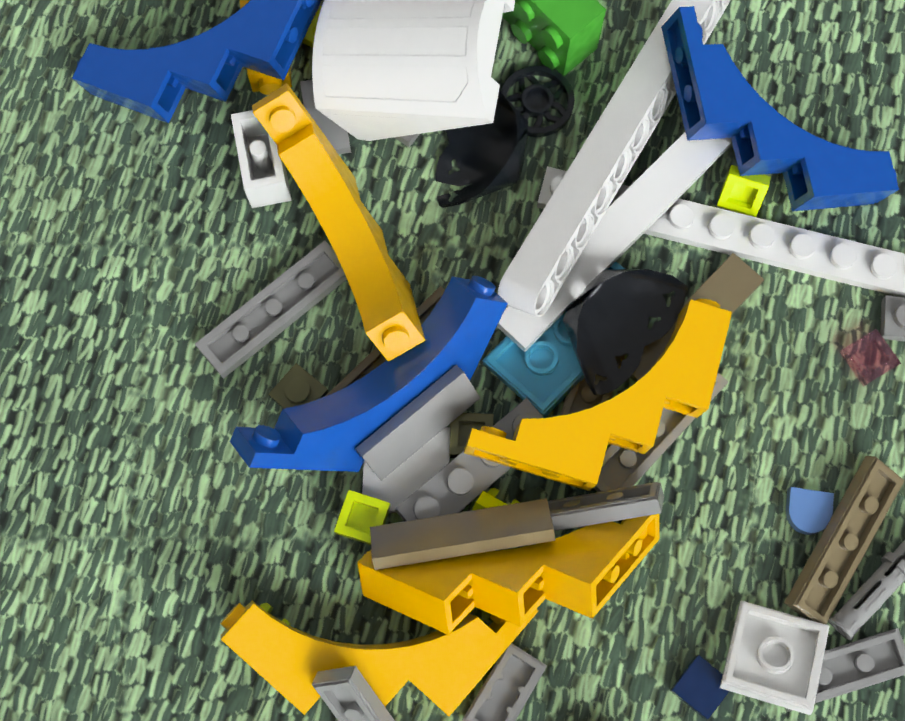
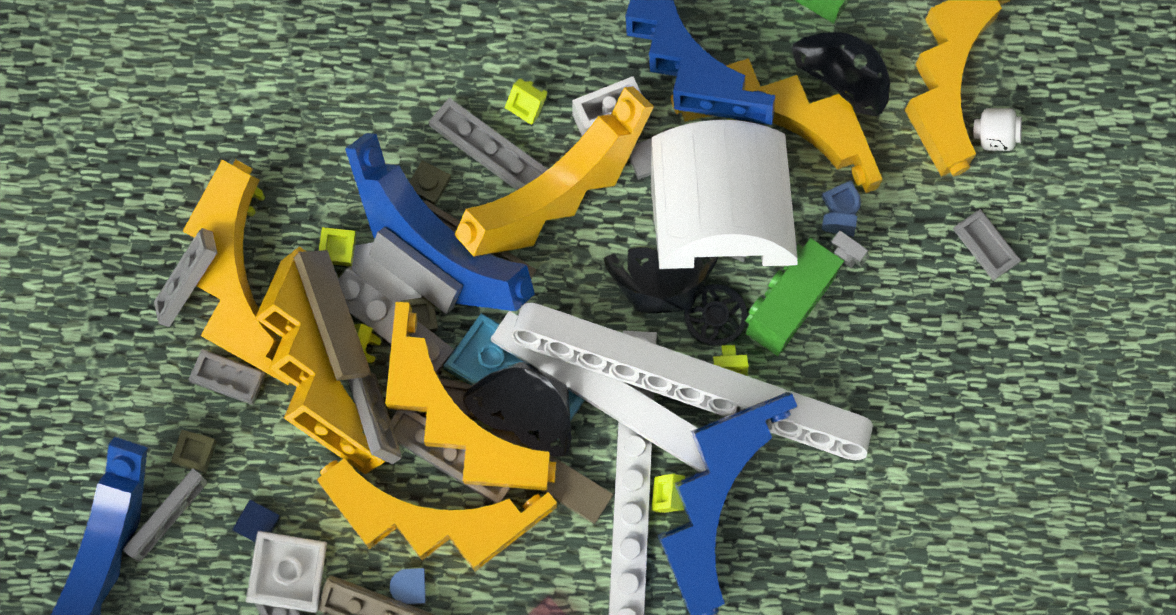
camera: 75 degrees right, 0 degrees up
(223, 254) = (526, 101): none -> neon yellow tile
(599, 94) = (731, 361): none -> neon yellow tile
(758, 415) = (475, 532): none -> yellow arch

